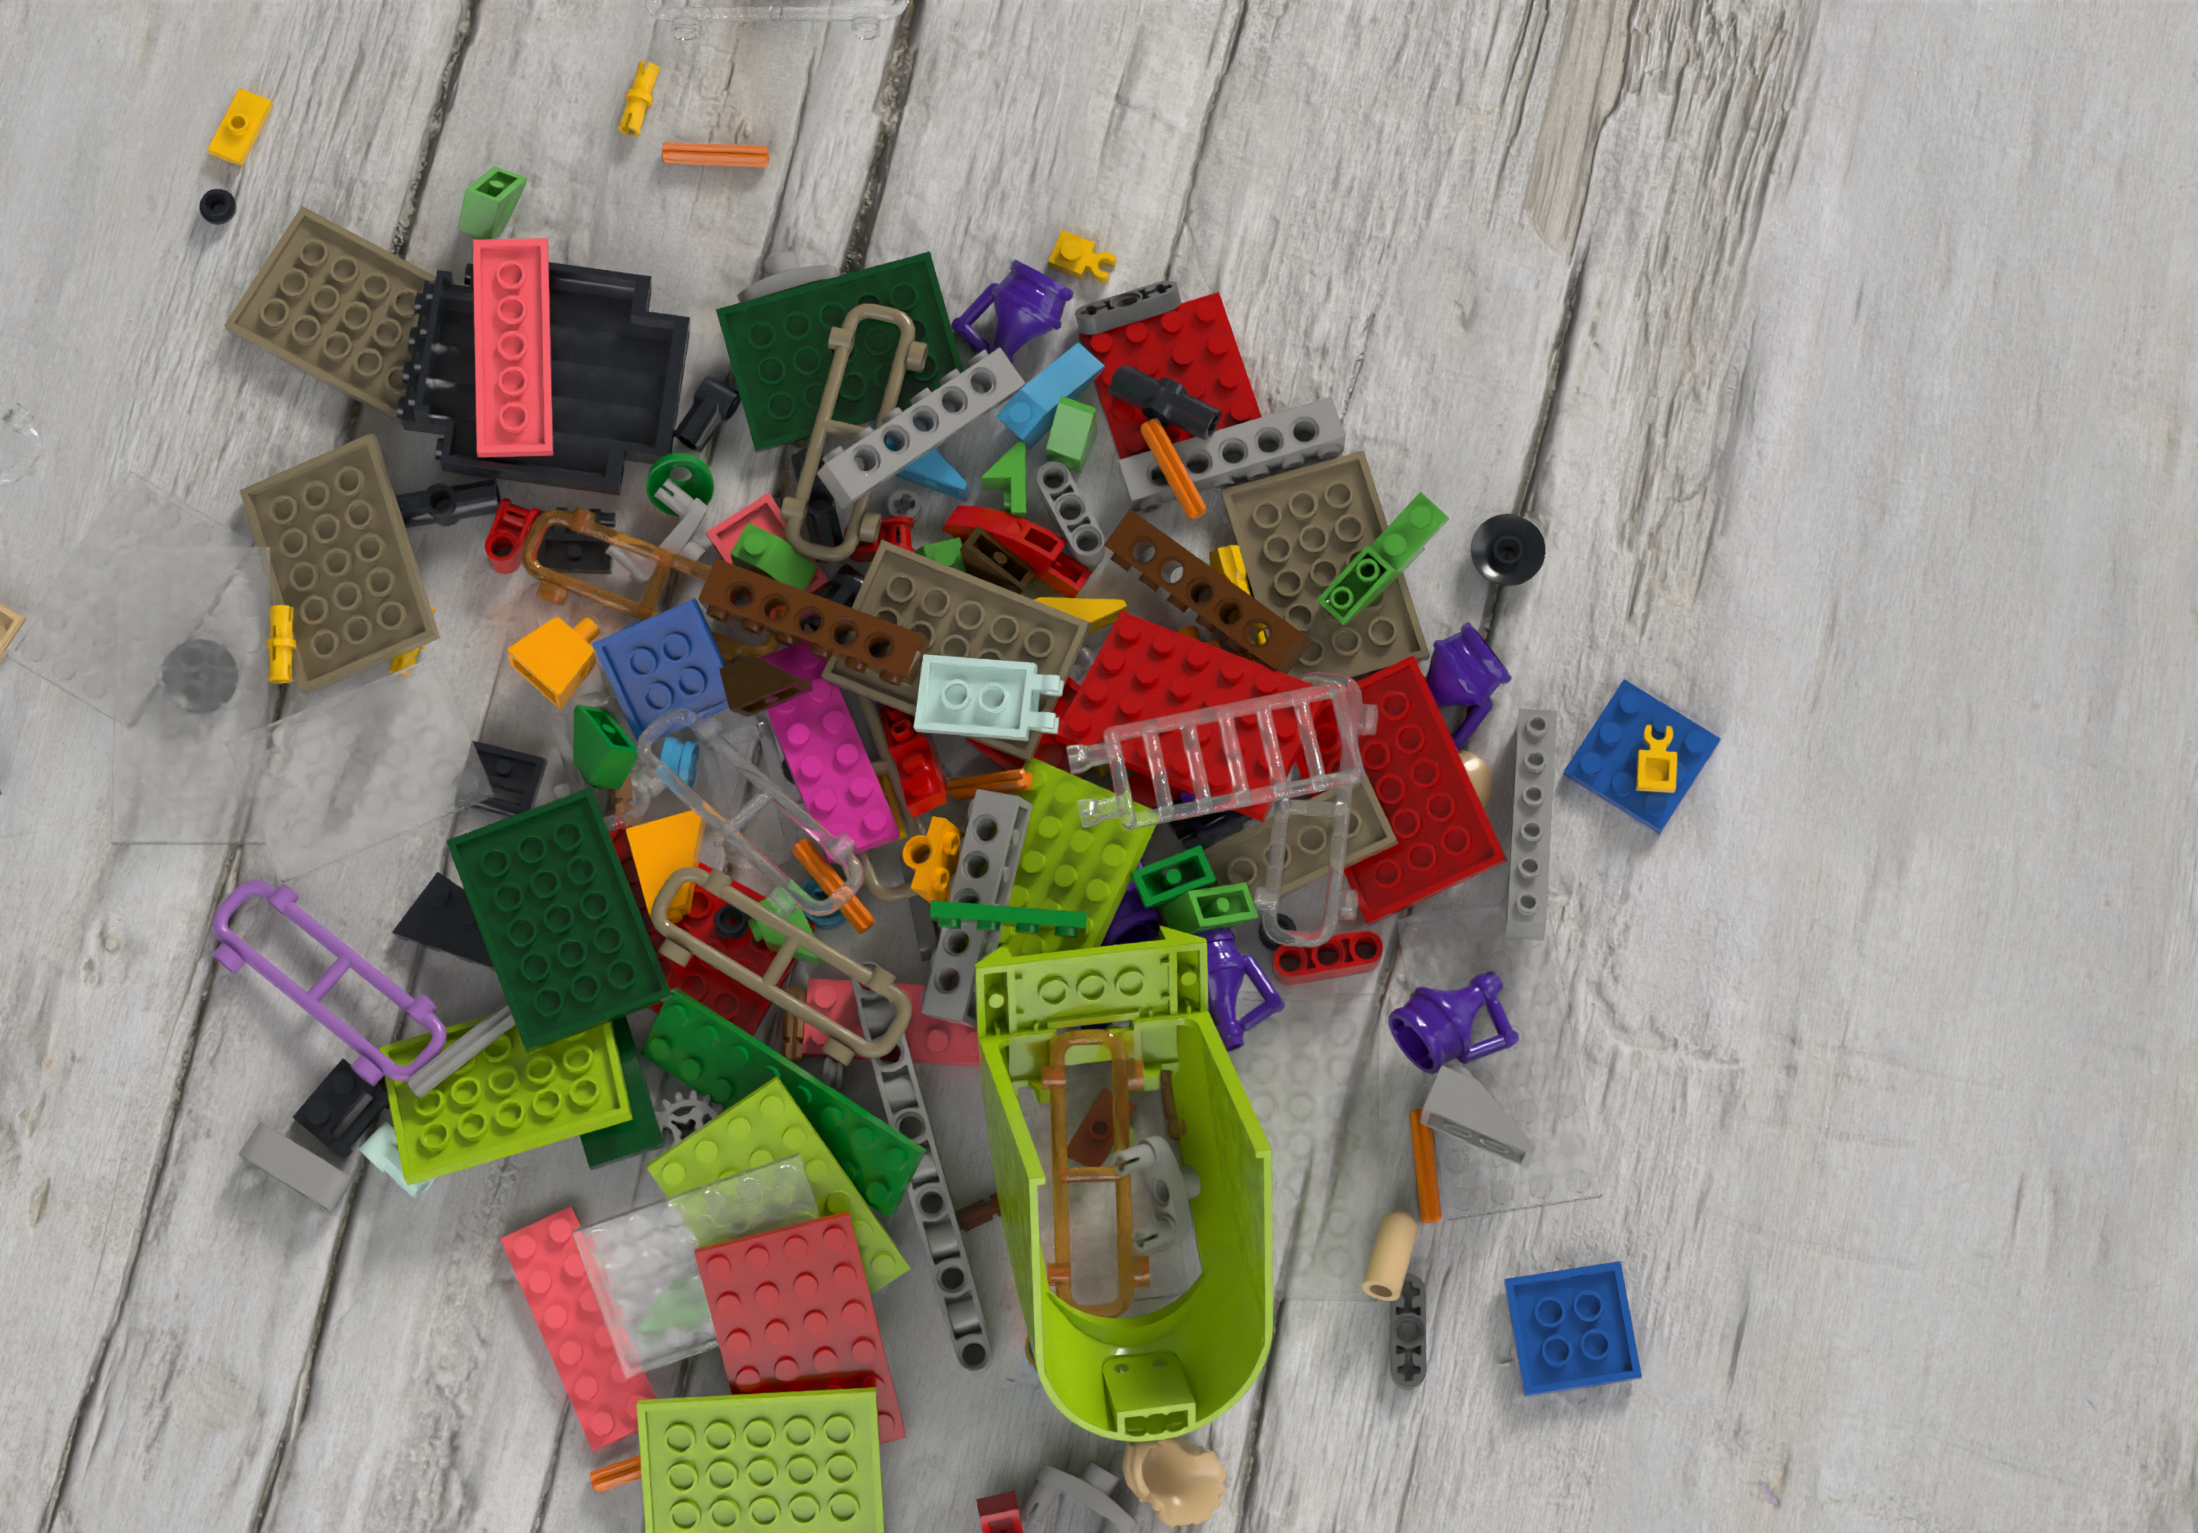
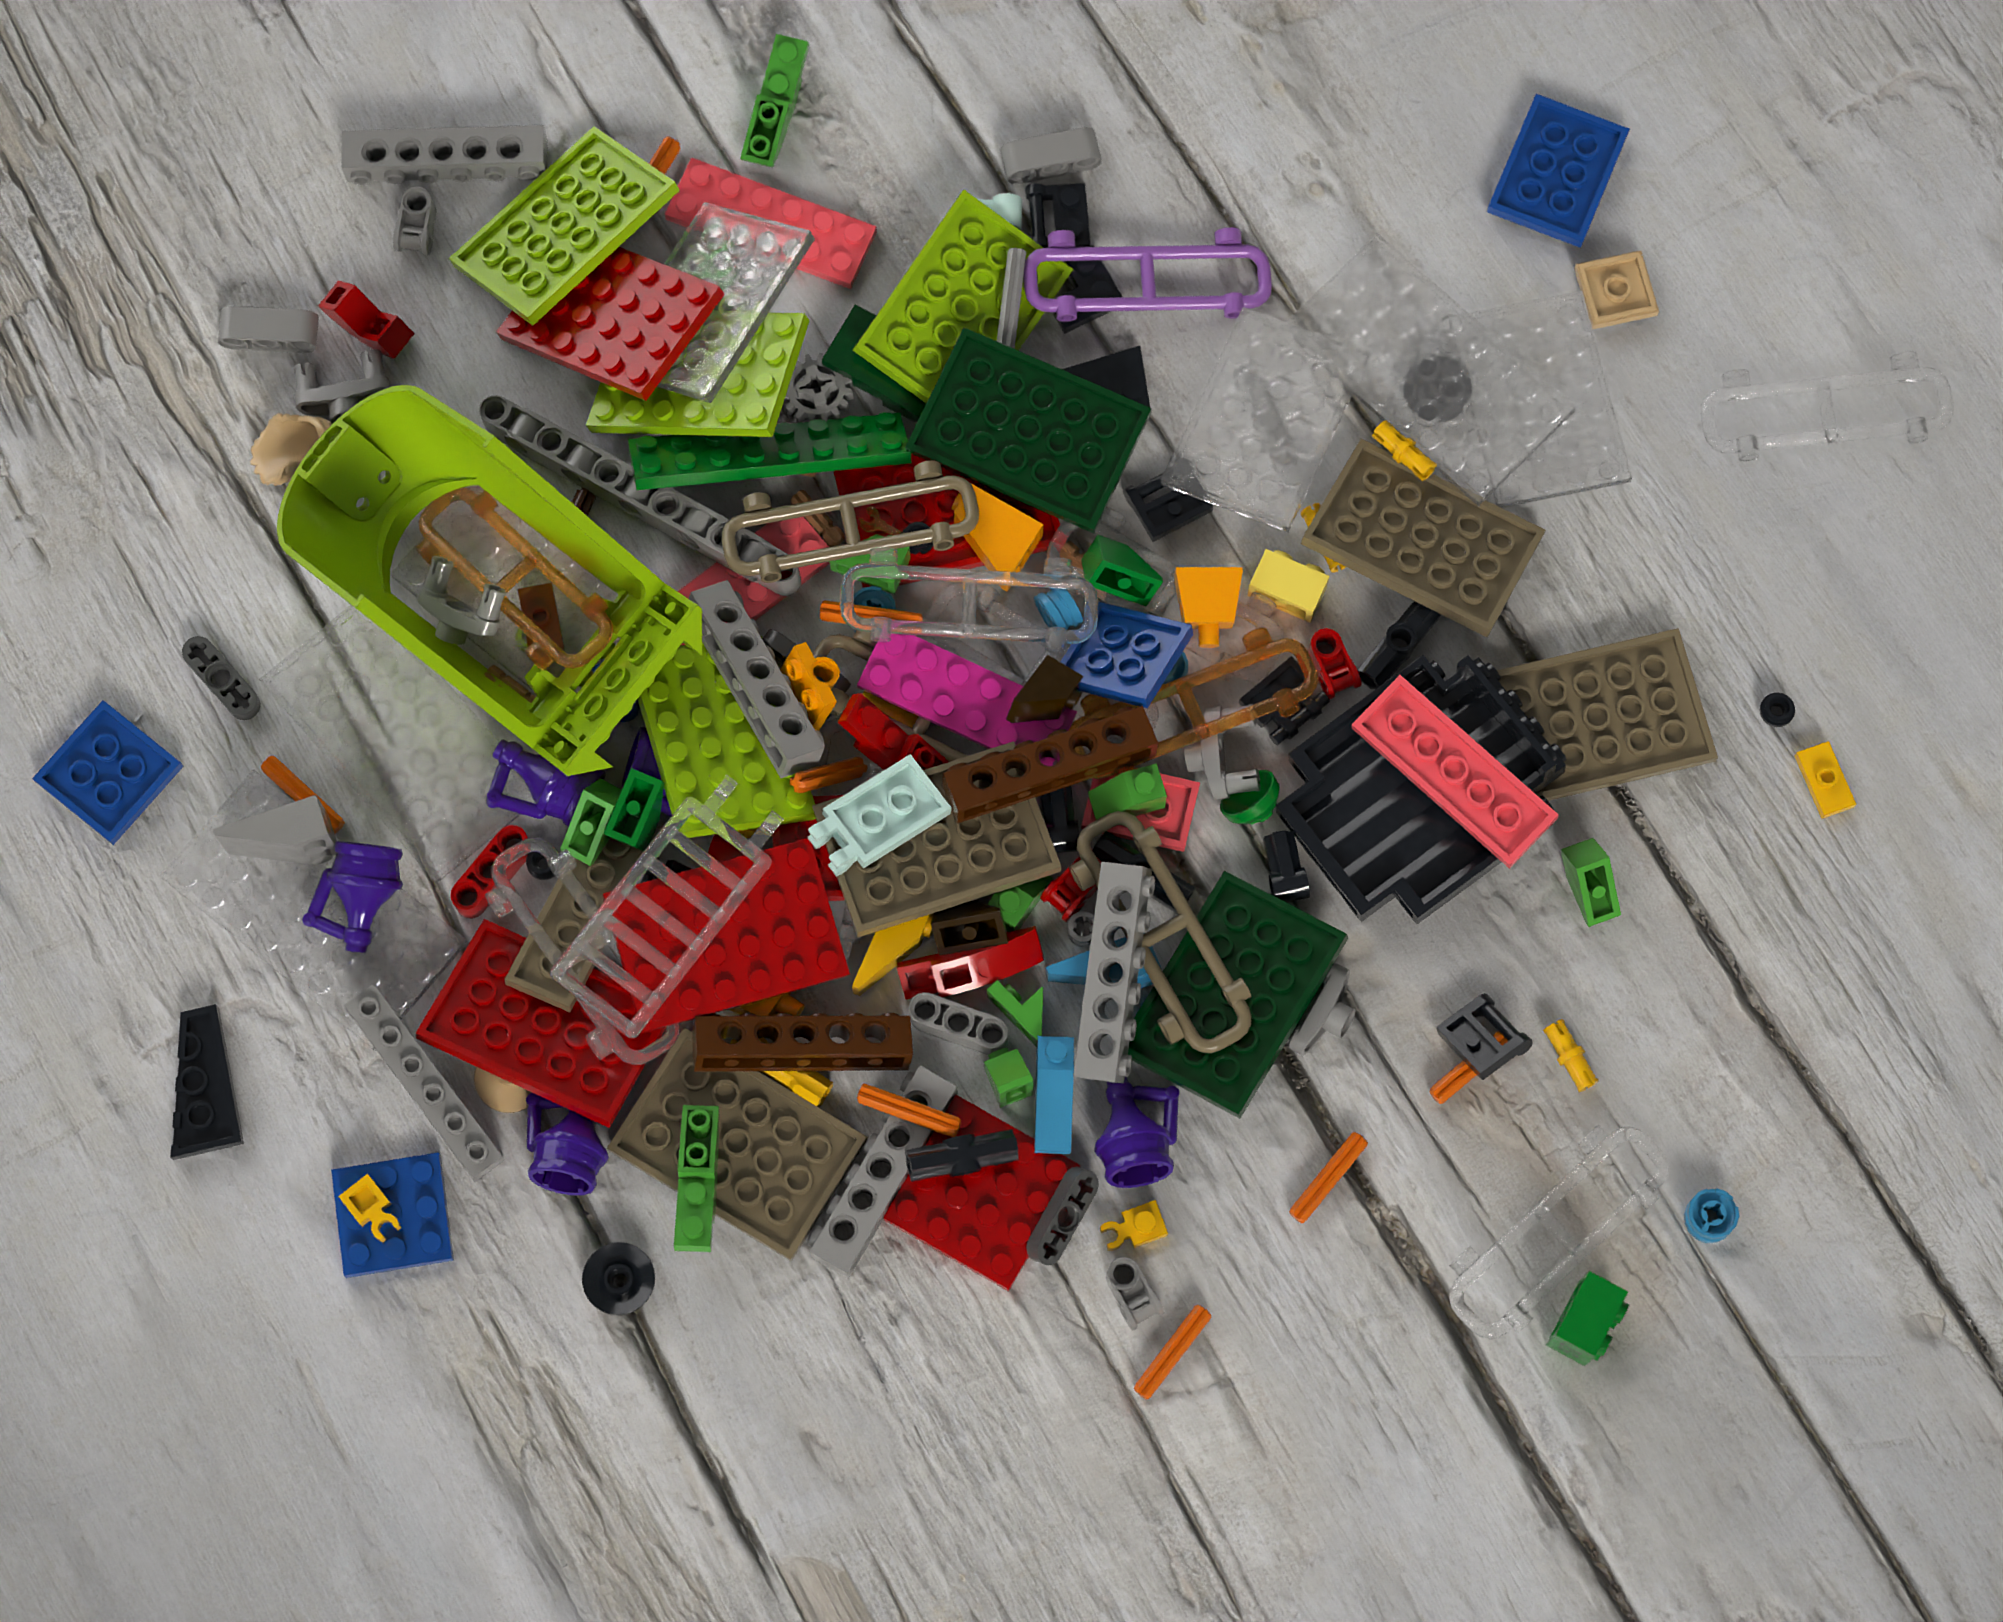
camera: 135 degrees right, 0 degrees up
(379, 1018) = (1091, 281): none -> black plate
(475, 1432) = (776, 101): none -> bright green slope
(479, 625) = (1289, 584): none -> light yellow brick
(701, 160) = (1476, 1044): none -> black plate
(751, 956) = (877, 523): none -> clear yellow hand
(904, 169) = (1328, 1177): none -> orange axle
(991, 917) = (724, 666): green plate -> none
(1129, 206) = (1133, 1294): none -> light grey piece
(1140, 148) = (1172, 1352): none -> orange axle
(1390, 1256) = (270, 709): tan brick -> none
(1713, 980) = (205, 1095): none -> black wing

